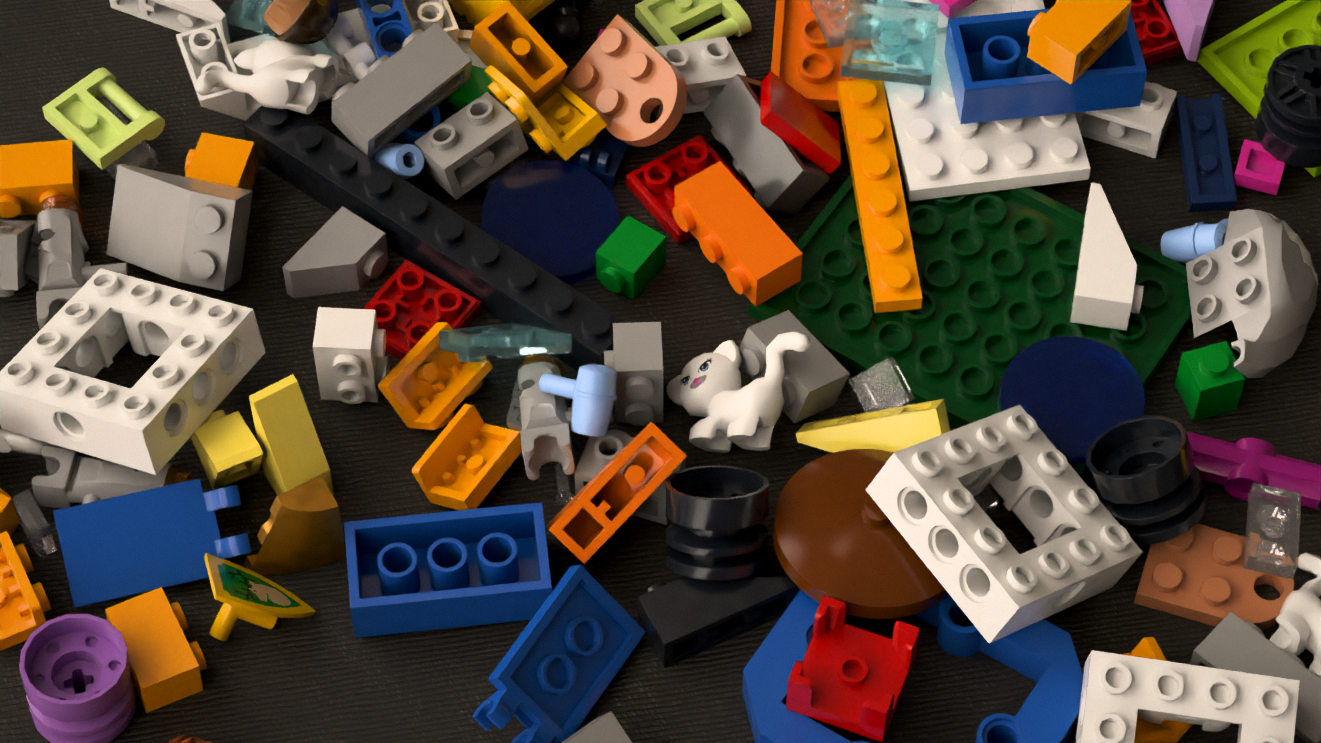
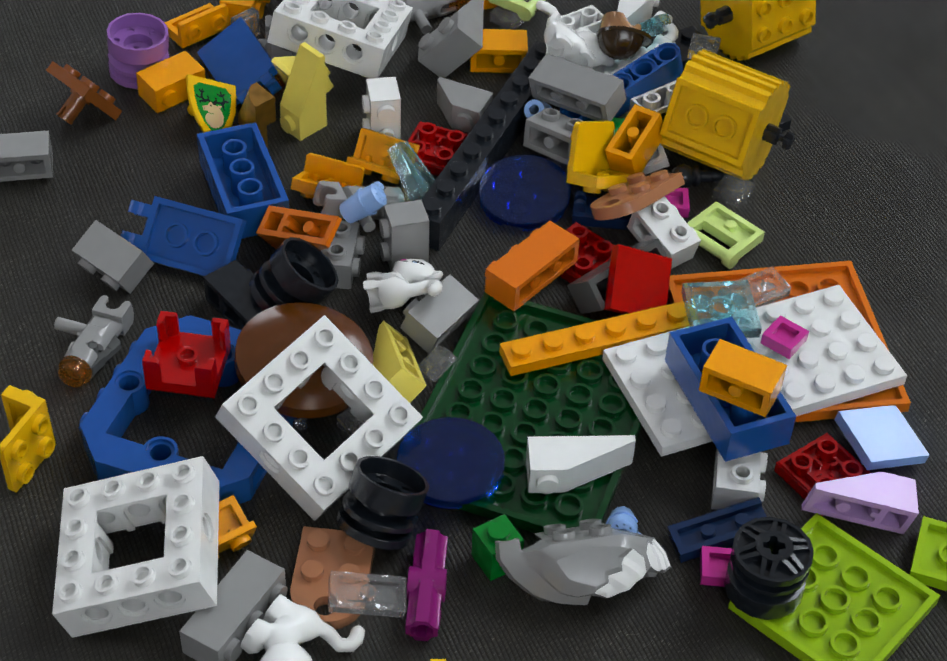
camera: 75 degrees right, 10 degrees down
(630, 258) = (505, 228): green brick -> none

